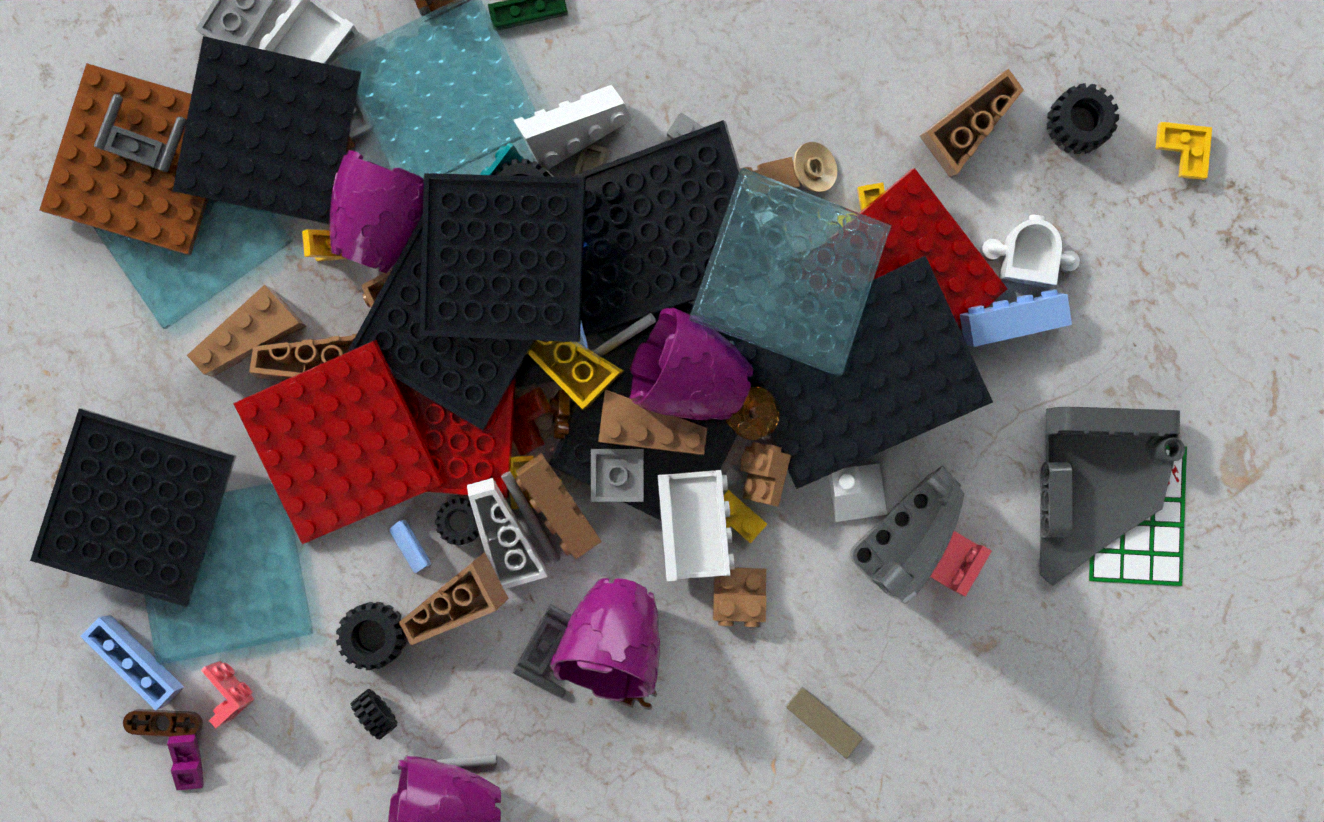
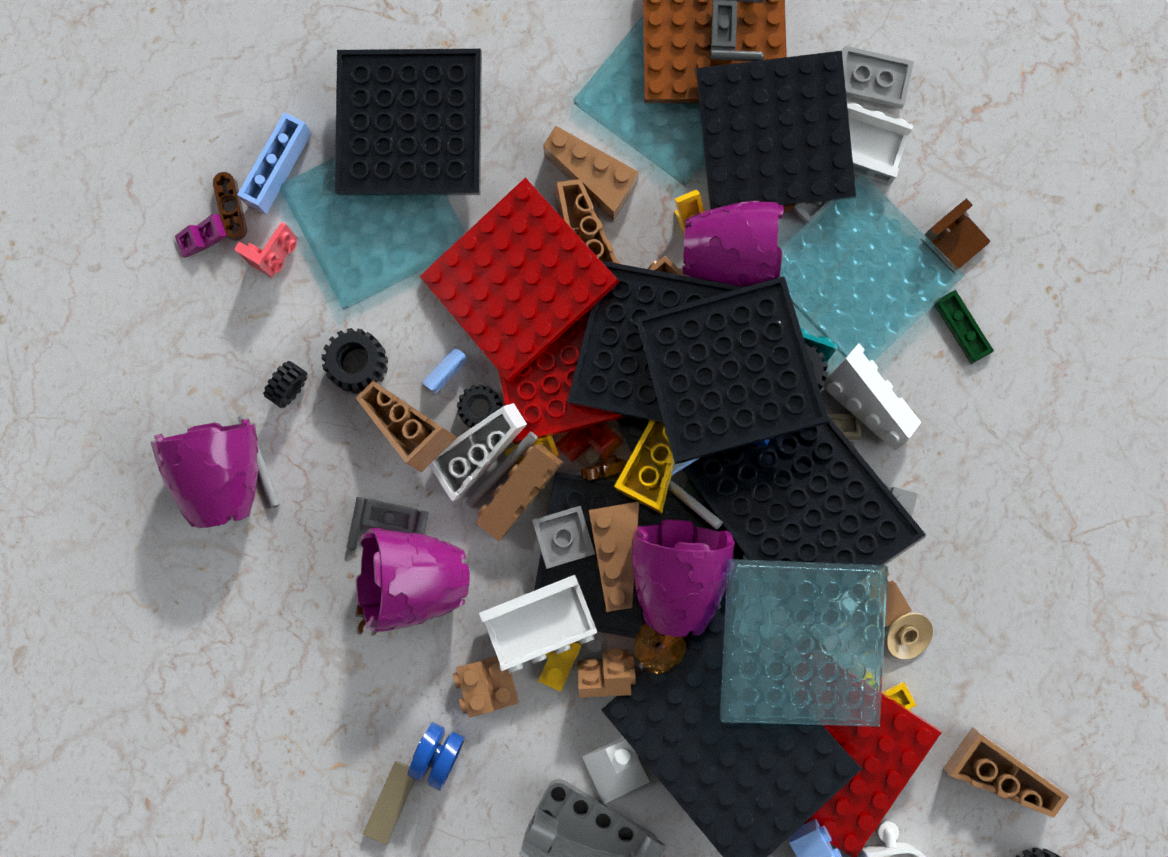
camera: 75 degrees right, 5 degrees down
(793, 663) = (434, 755): none -> blue wheel

